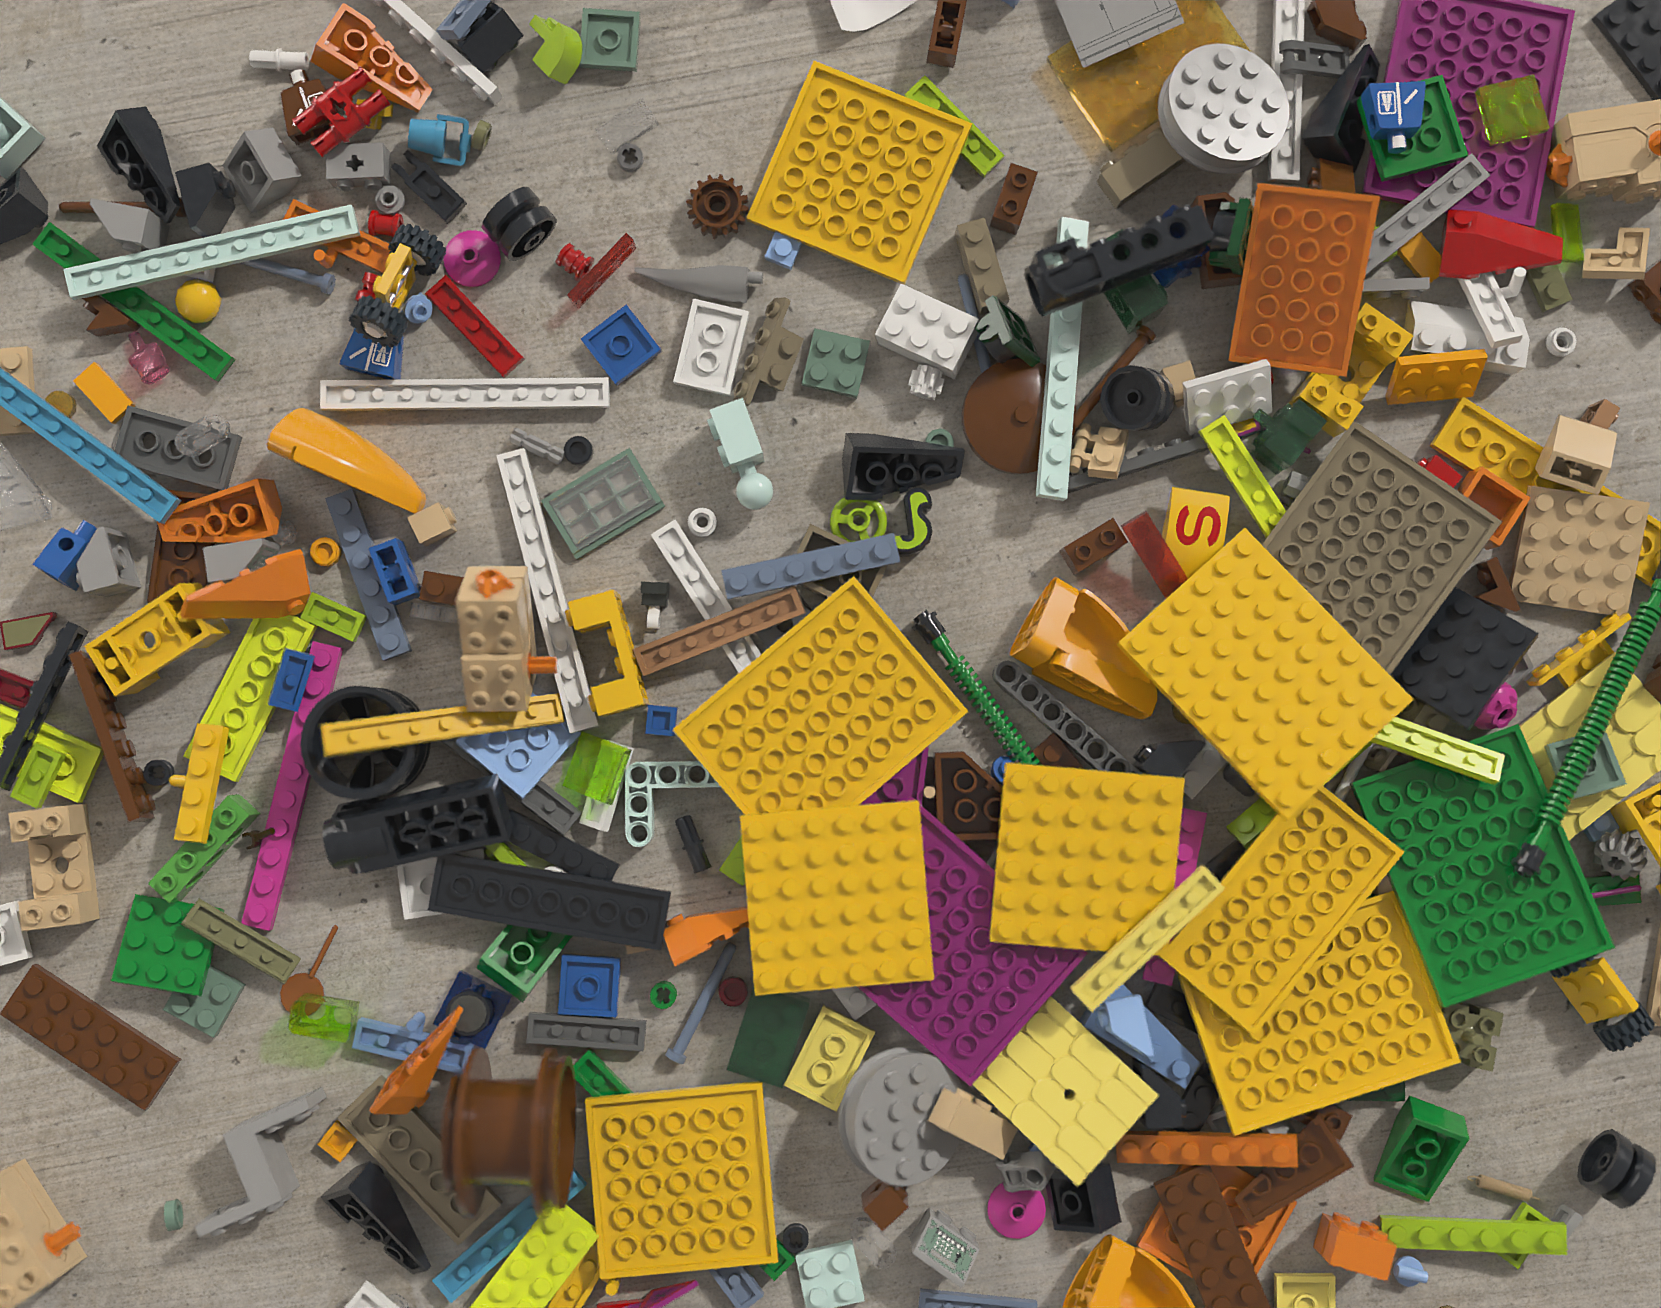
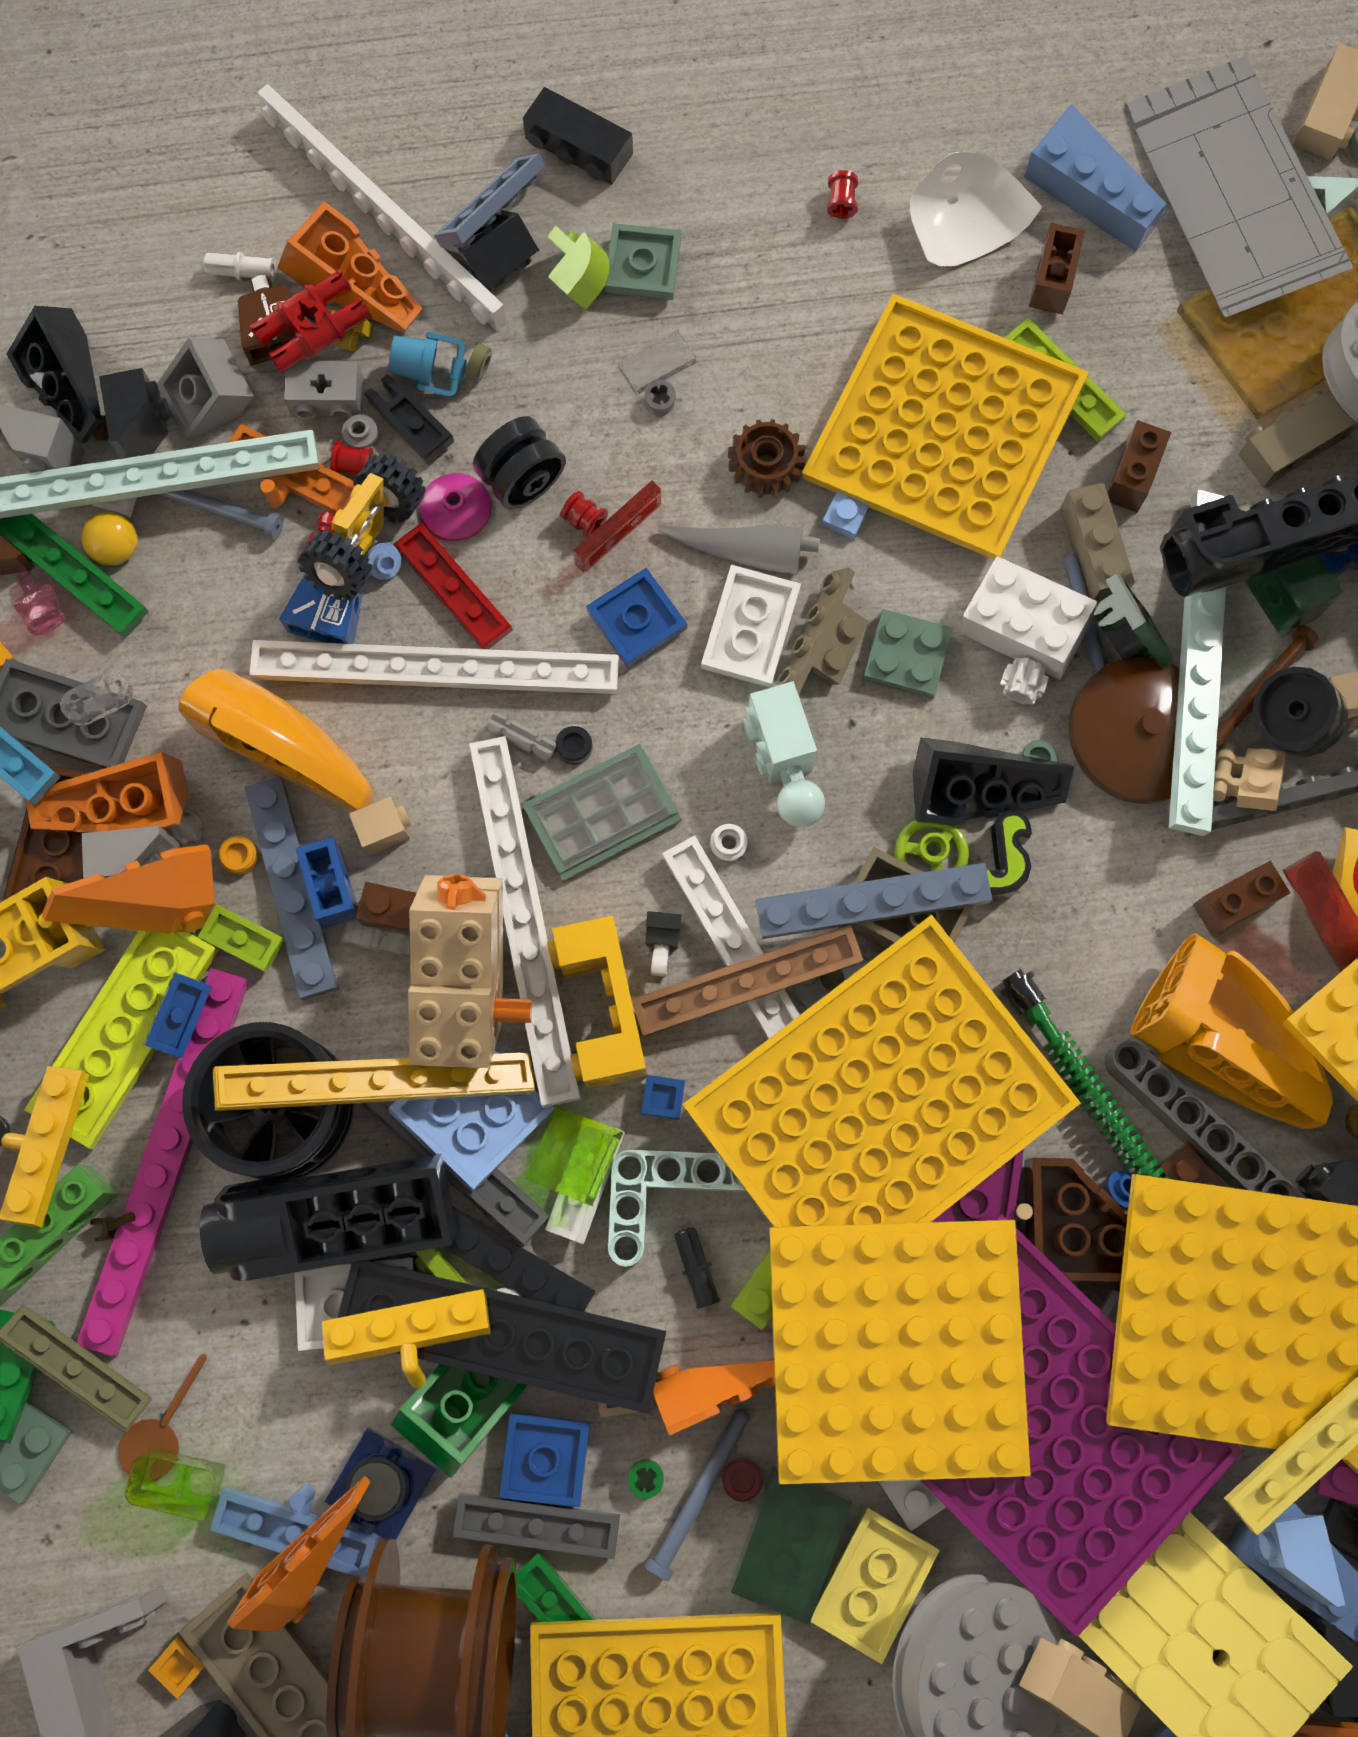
camera: 10 degrees right, 10 degrees down
(480, 902) = (405, 1330): none -> yellow plate

